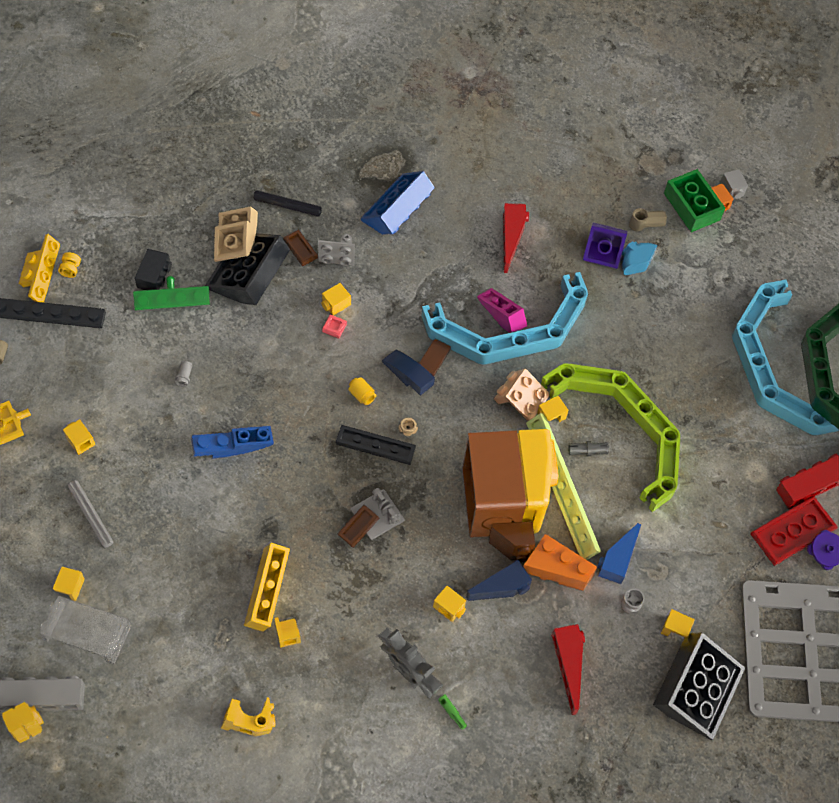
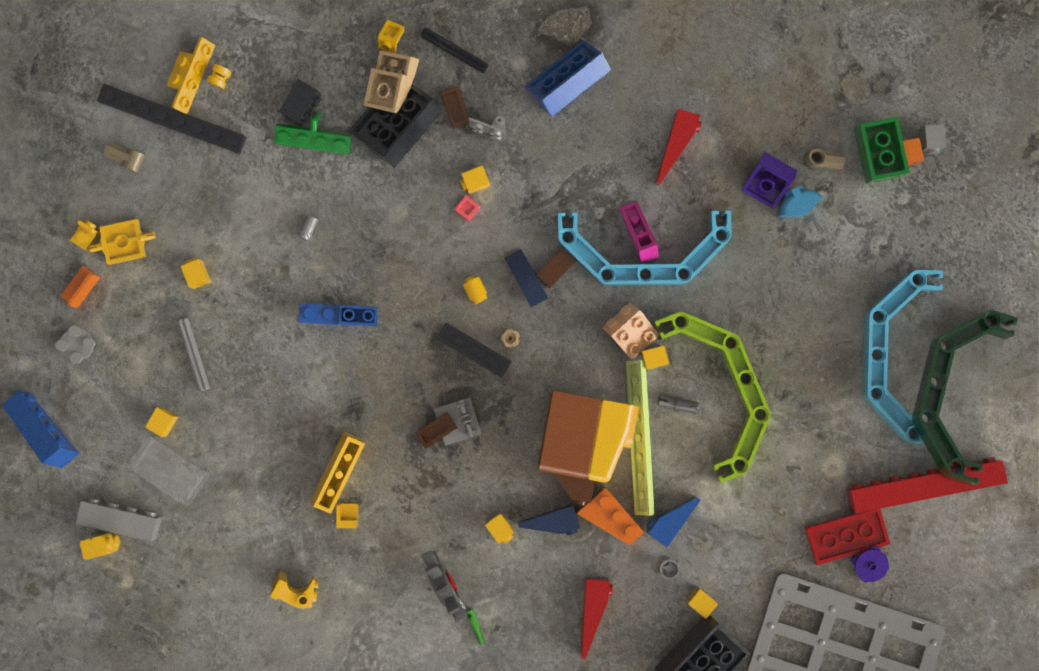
camera: 20 degrees right, 25 degrees up
(225, 202) = (390, 36): none -> yellow bracket

